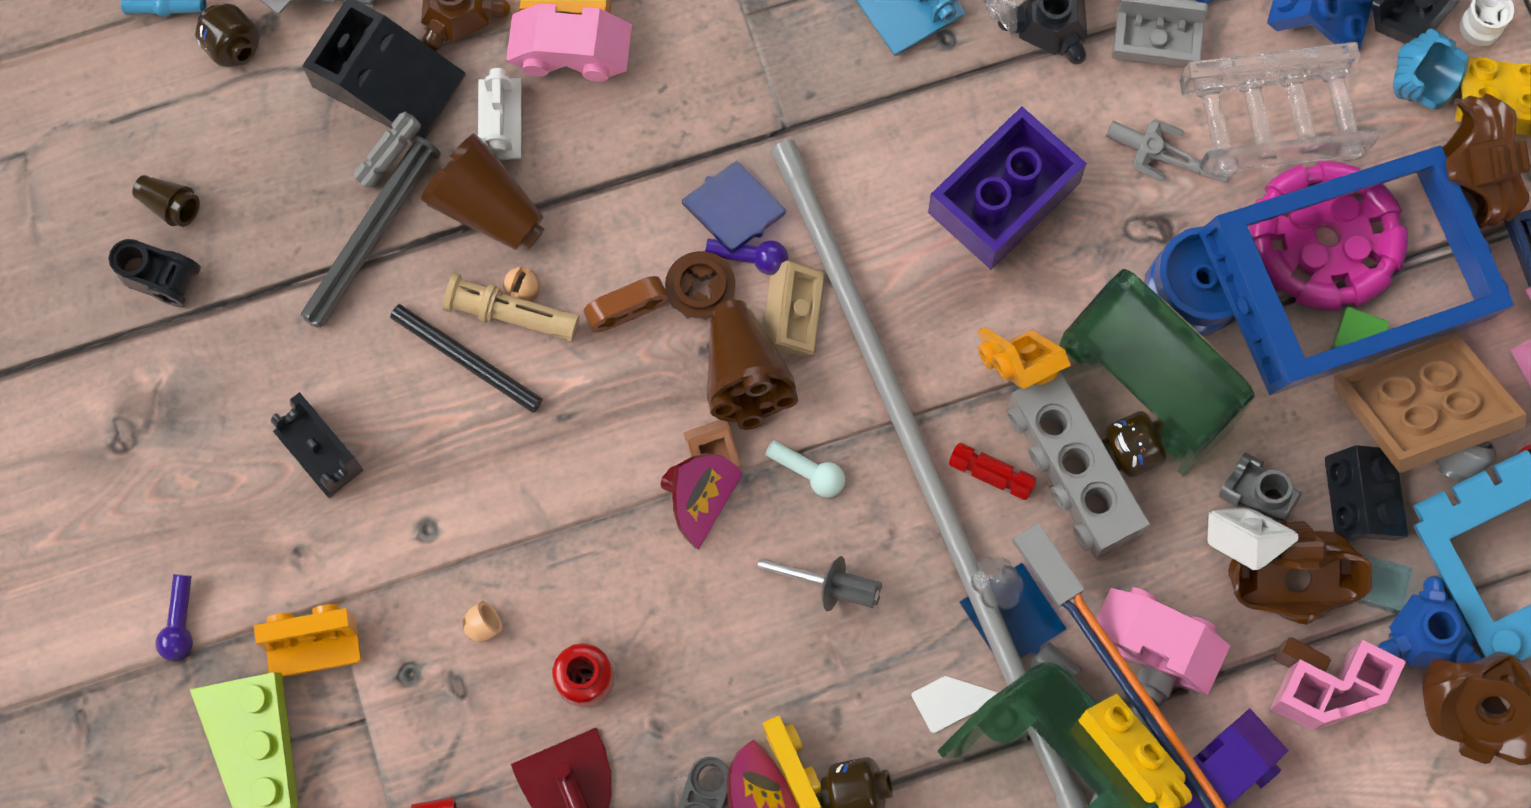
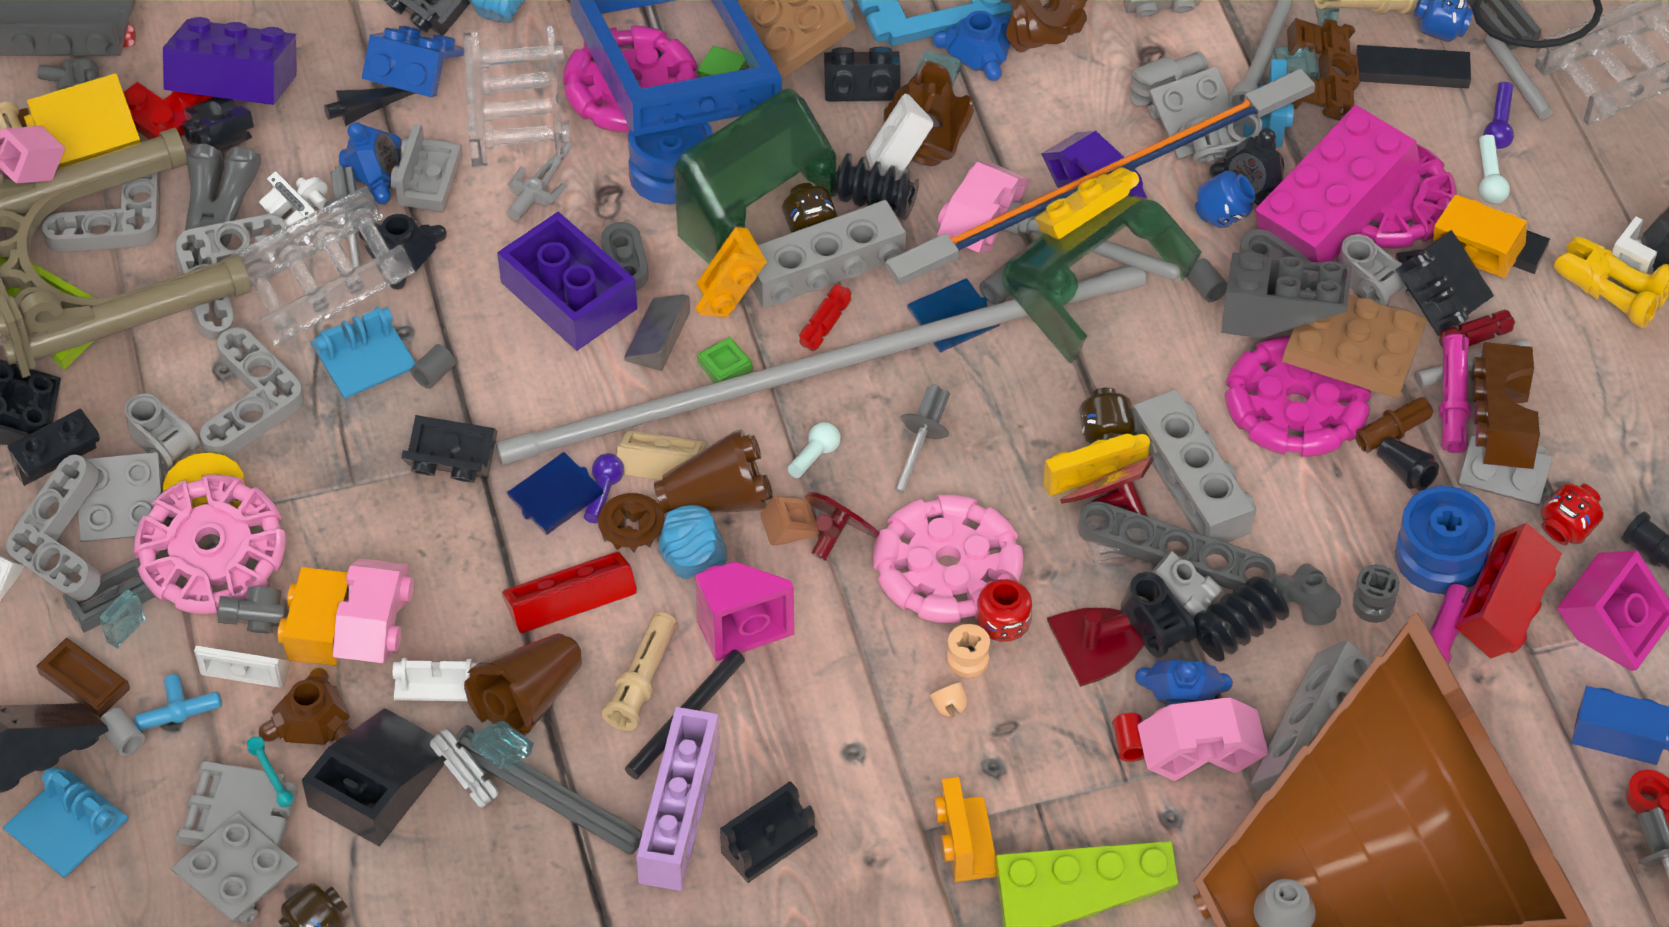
camera: 90 degrees left, 20 degrees down
(344, 352) = (678, 799): none -> lavender brick
(406, 179) = (501, 744): none -> clear light blue tile
(529, 287) = (610, 669): light nougat hinge -> none
(544, 648) = (965, 661): none -> light nougat wheel
(570, 389) = (742, 608): none -> dark pink slope
(613, 228) = (570, 592): none -> red slope
(626, 304) = (646, 576): dark orange beam -> none
(671, 349) = (691, 541): none -> dark azure hair
(671, 590) = (941, 538): none -> bright pink plate
(778, 96) = (450, 447): none -> black bracket
(892, 69) = (433, 366): none -> dark grey hinge
(923, 367) = (724, 361): none -> bright green tile
(949, 701) = (1026, 362): white sticker -> none
(958, 294) = (659, 331): none -> flat silver slope
(997, 583) = (927, 312): clear plant -> none
(1056, 250) = (630, 254): none -> dark grey plate
(1178, 515) = (875, 187): none -> black piece
(1252, 484) = (856, 134): dark grey plate -> none
(1294, 650) = (999, 121): reddish brown tile -> none
(1321, 700) = (1032, 101): bright pink brick -> none

